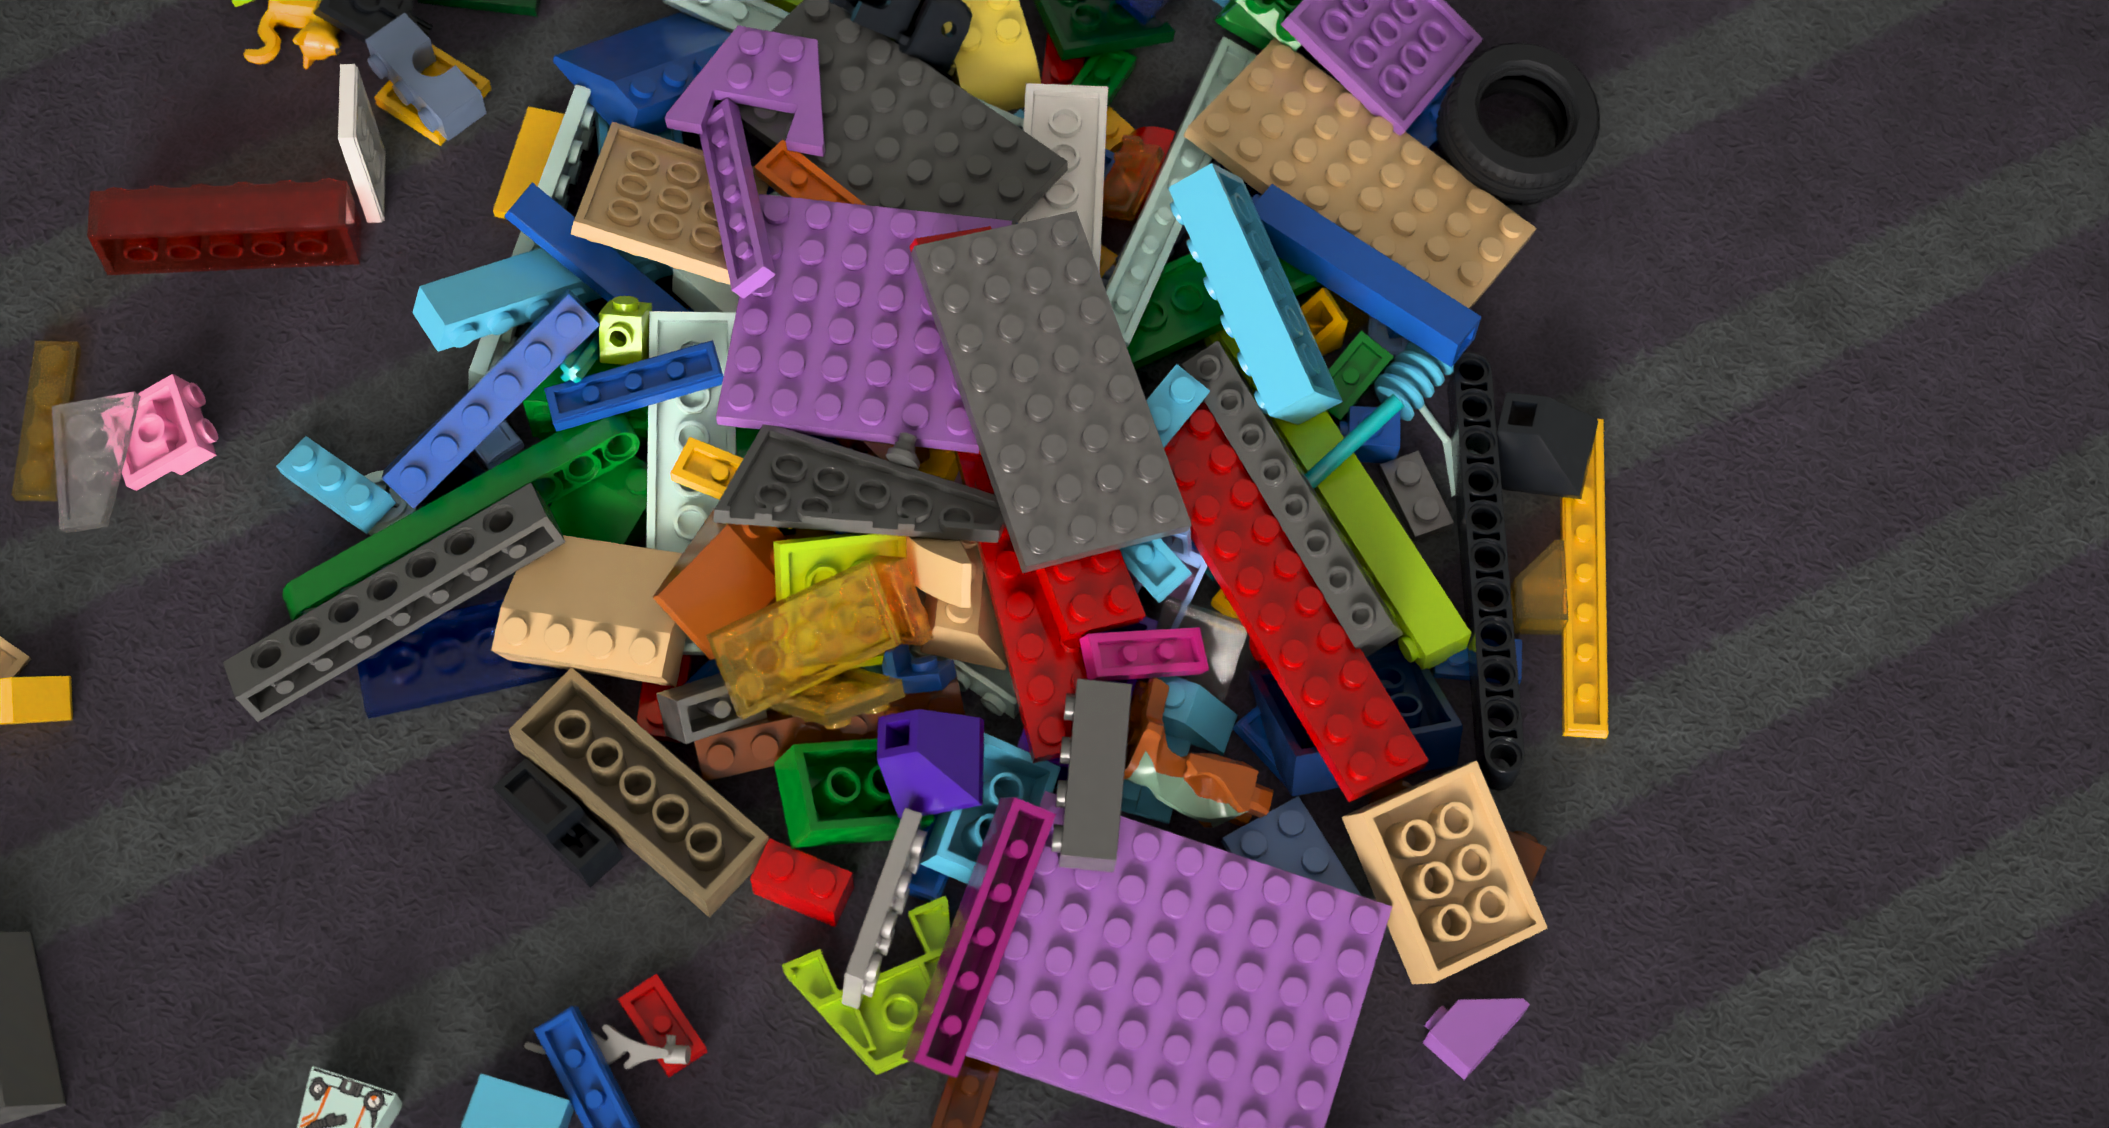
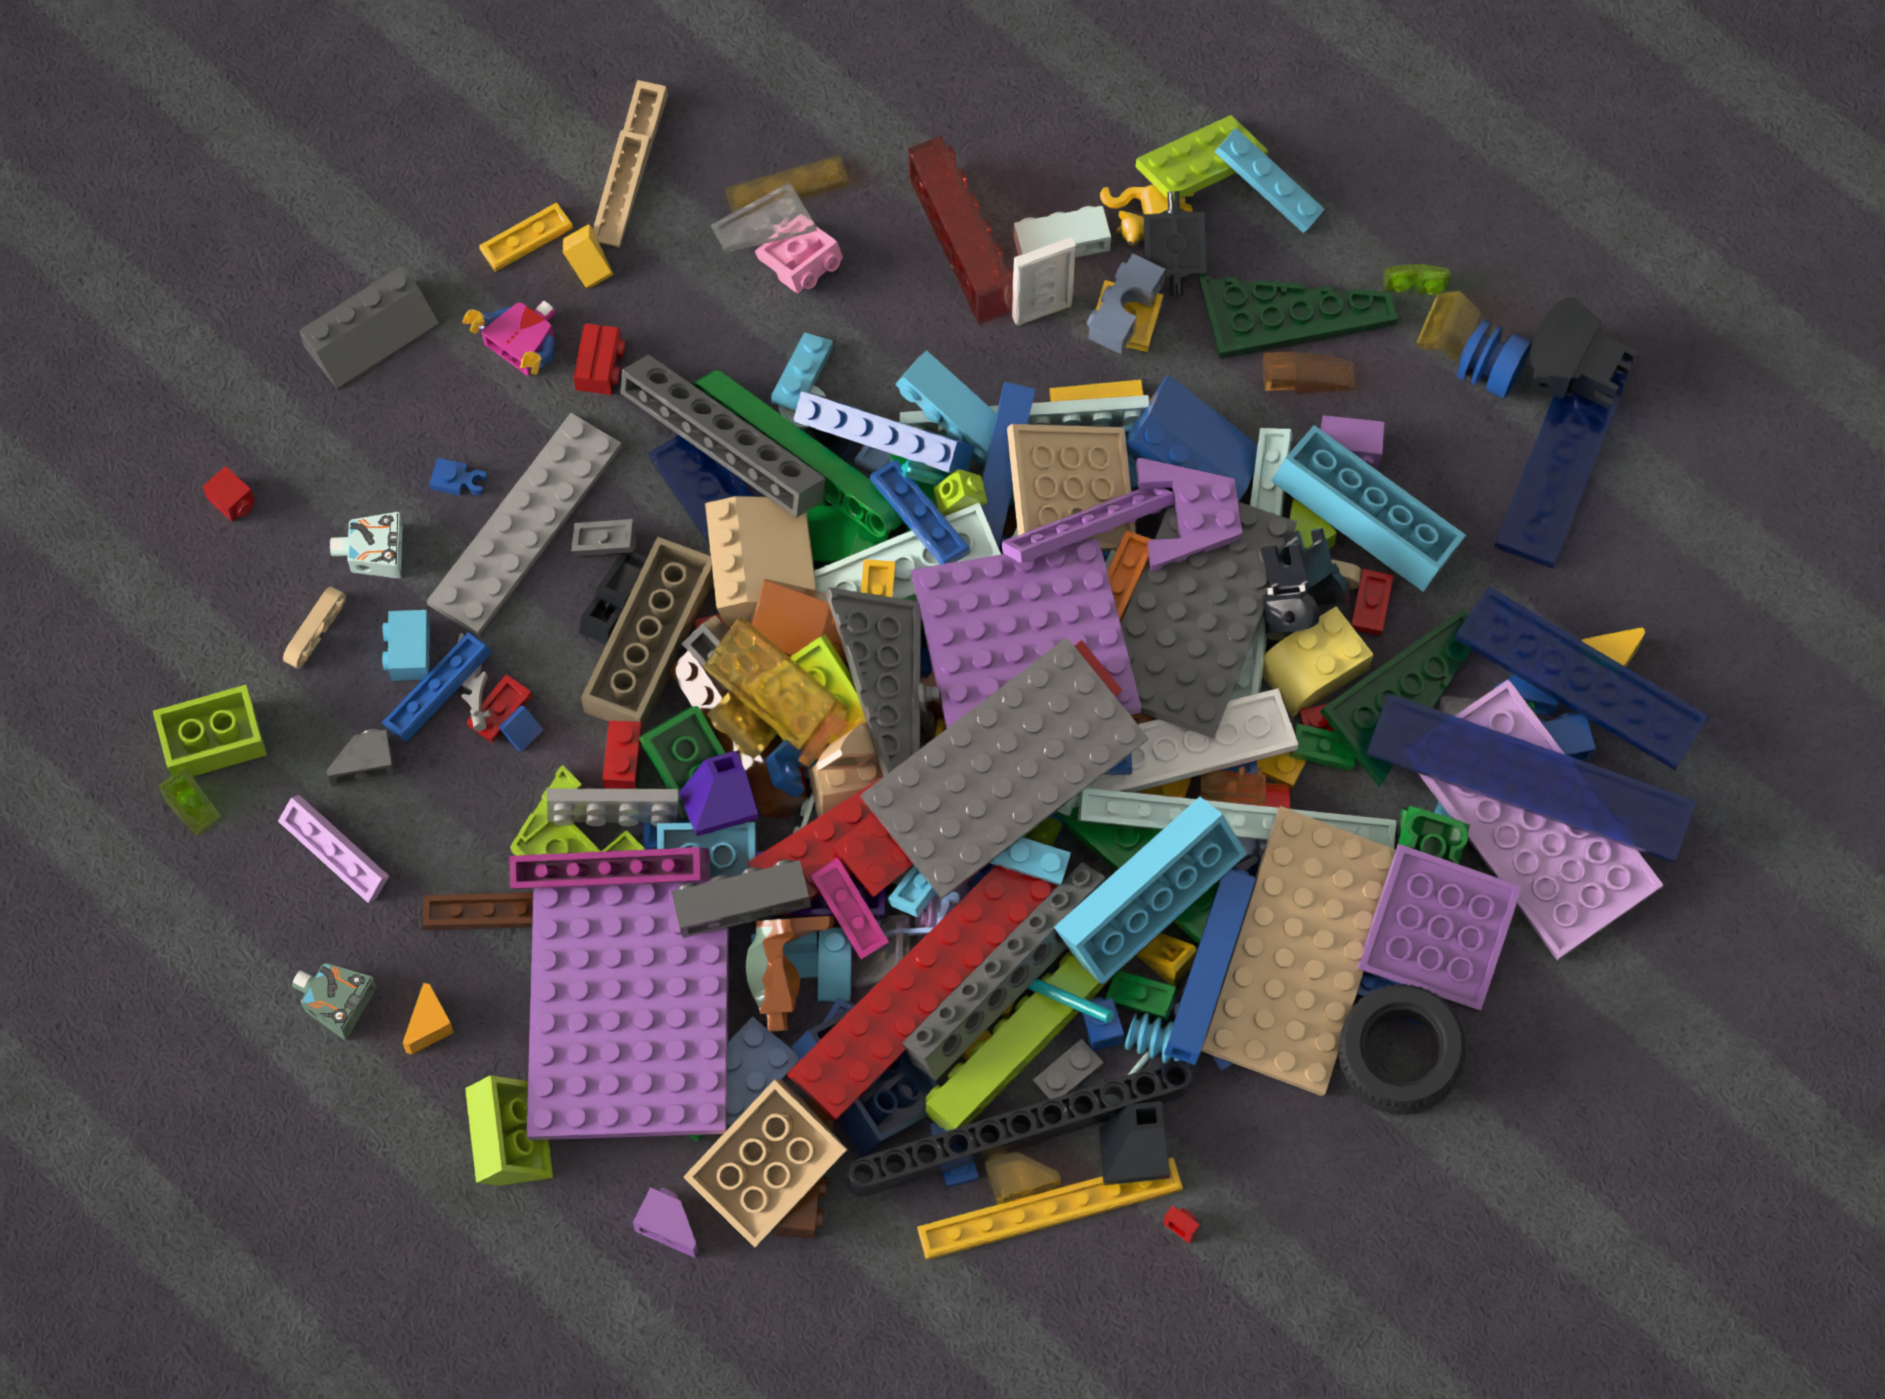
camera: 75 degrees right, 0 degrees up
(108, 824) = (517, 334): none -> torso
(193, 733) = (598, 359): none -> red brick
(281, 985) = (453, 476): none -> blue plate
(287, 122) = (1085, 226): none -> light aqua brick
(397, 911) = (524, 524): none -> light grey plate
(467, 808) = (604, 537): none -> flat silver plate
(704, 1004) = (521, 728): none -> blue tile
(1651, 432) = (1182, 1223): none -> red plate

